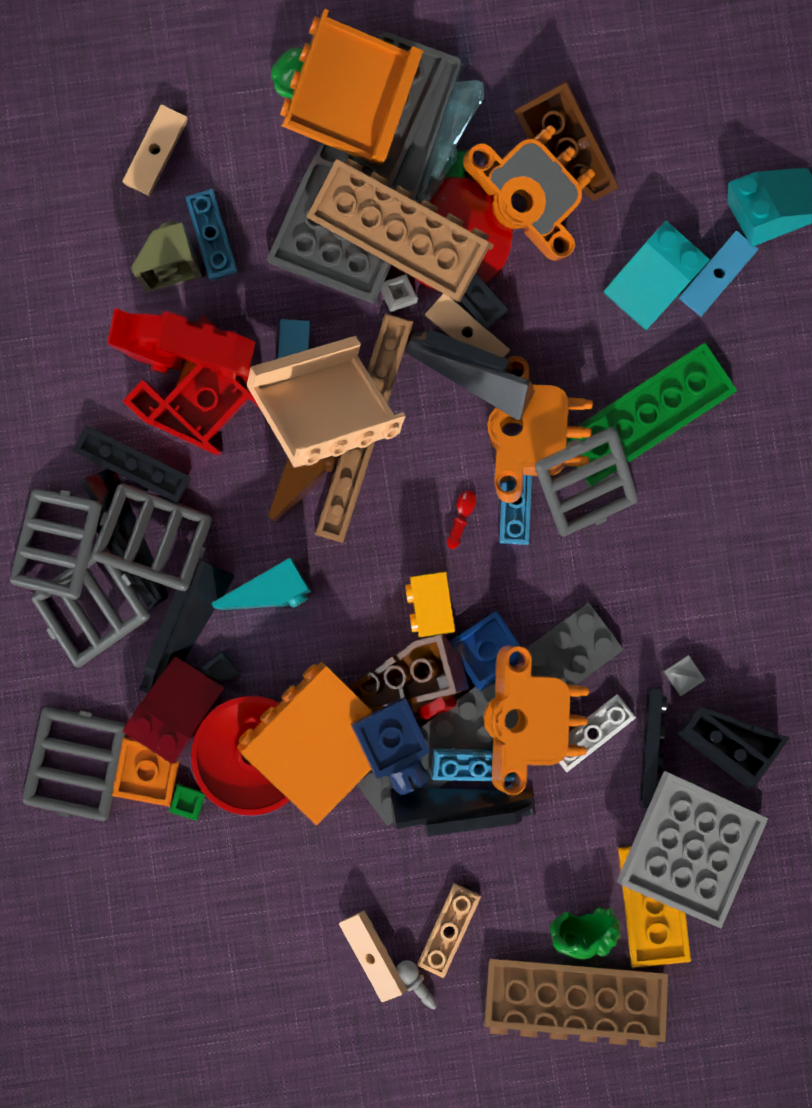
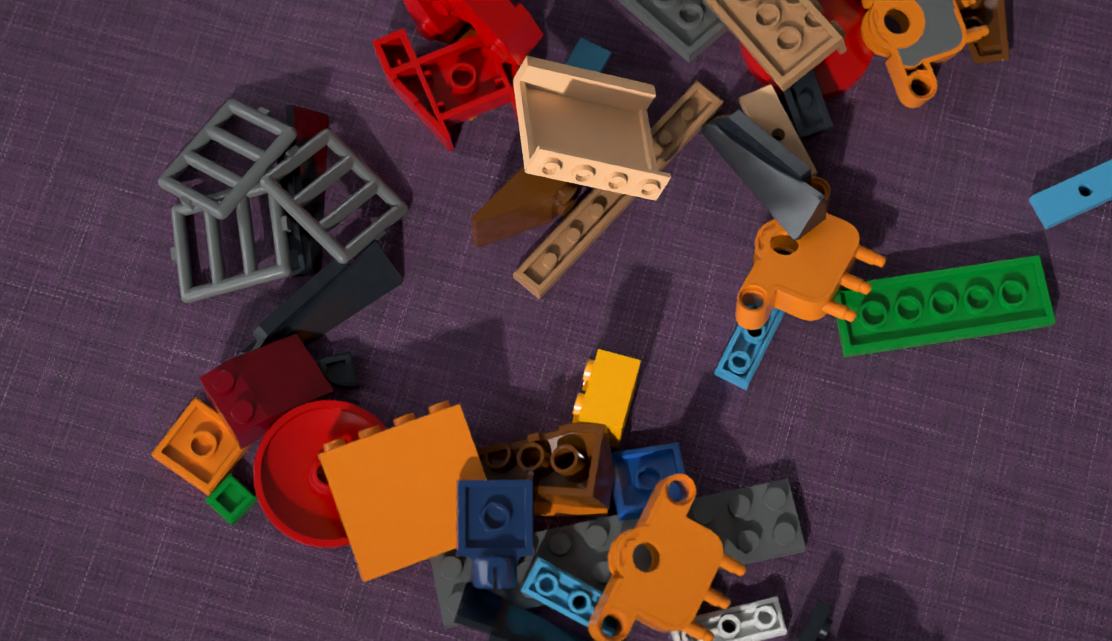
camera: 20 degrees right, 15 degrees down
(44, 742) = (106, 364): dark grey bar -> none
(132, 464) = (350, 117): black plate -> none
(273, 588) = (432, 303): teal slope -> none
(398, 292) = (720, 66): light grey tile -> none
(437, 706) = (563, 514): red tile -> none
(465, 506) = (693, 317): red piece -> none
(574, 449) = (886, 357): dark grey bar -> none
(656, 275) = (1013, 164): teal slope -> none
(684, 675) = (863, 610): light grey tile -> none

